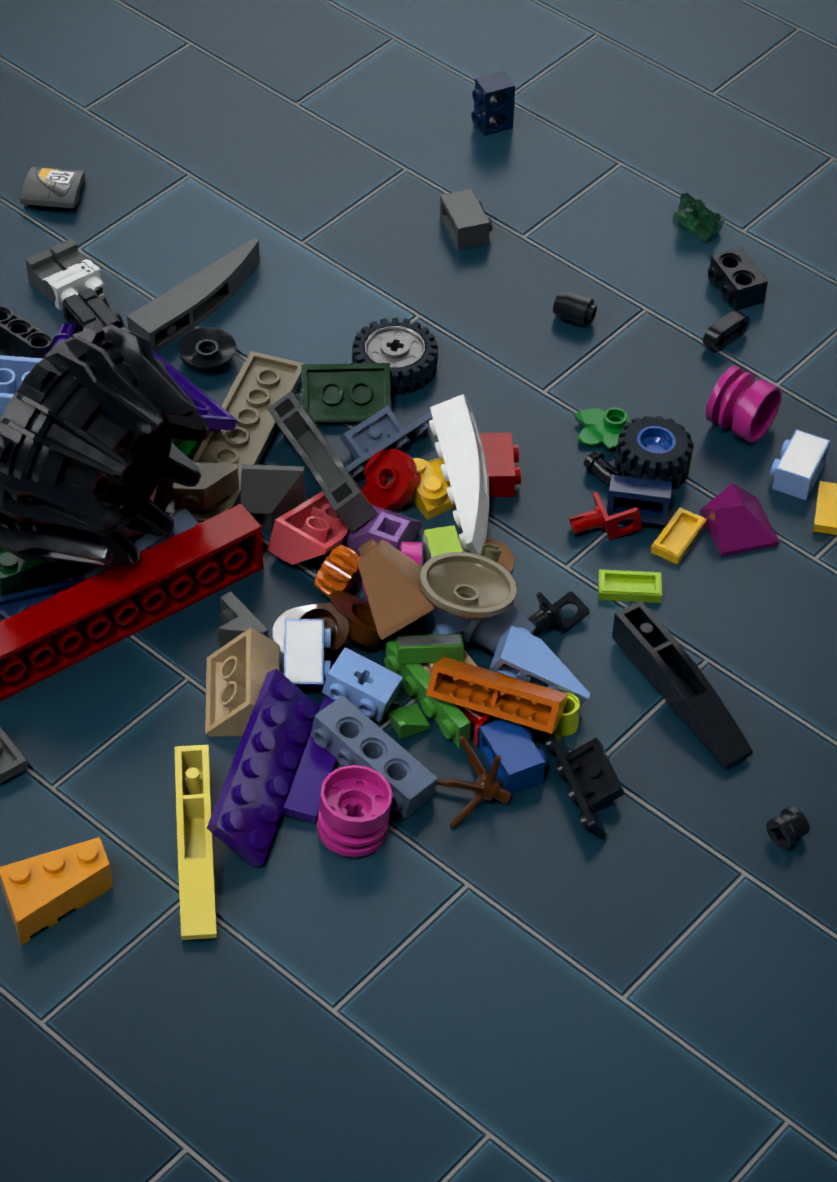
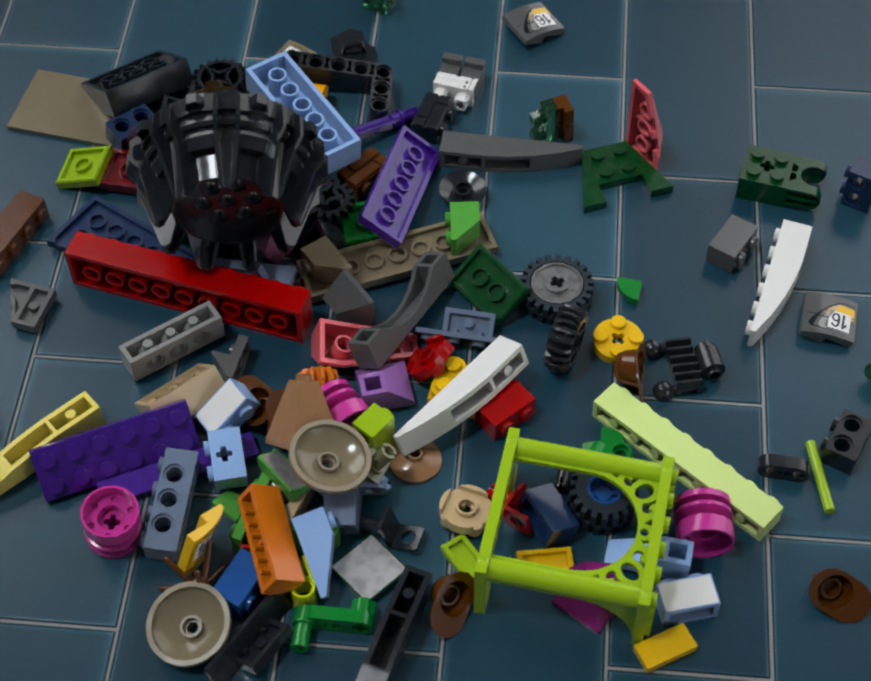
camera: 55 degrees right, 5 degrees up
(169, 655) = (172, 340): none -> light grey brick
(202, 237) = (552, 120): none -> hips
(260, 366) = (463, 224): none -> bright green slope
(291, 238) = (616, 166): none -> dark green wing
(292, 183) = (643, 124): none -> coral wedge
(425, 148) = (780, 178): none -> dark green brick
(442, 311) = (629, 289): none -> green tile
(448, 746) = (195, 542): none -> yellow slope
(468, 372) = (565, 338): none -> black gear
(499, 342) = (615, 328): none -> yellow plate
(530, 212) = (780, 277): none -> white slope
(534, 793) = (174, 616): none -> dark tan dish
(541, 356) = (630, 368): none -> reddish brown piece
(558, 330) = (681, 366): none -> black gear
(583, 653) = (368, 569): none -> flat silver tile
(592, 554) = (464, 522): none -> tan plate
(602, 214) = (828, 318): none -> dark grey slope
(624, 693) = (356, 620): none -> green beam
(650, 382) = (697, 465): none -> yellowish green brick
(667, 610) = (451, 603): none -> reddish brown piece
(694, 403) = (626, 598): none -> lime arch
(743, 457) = (676, 557): none -> light blue slope
(755, 319) = (820, 477): none -> lime bar

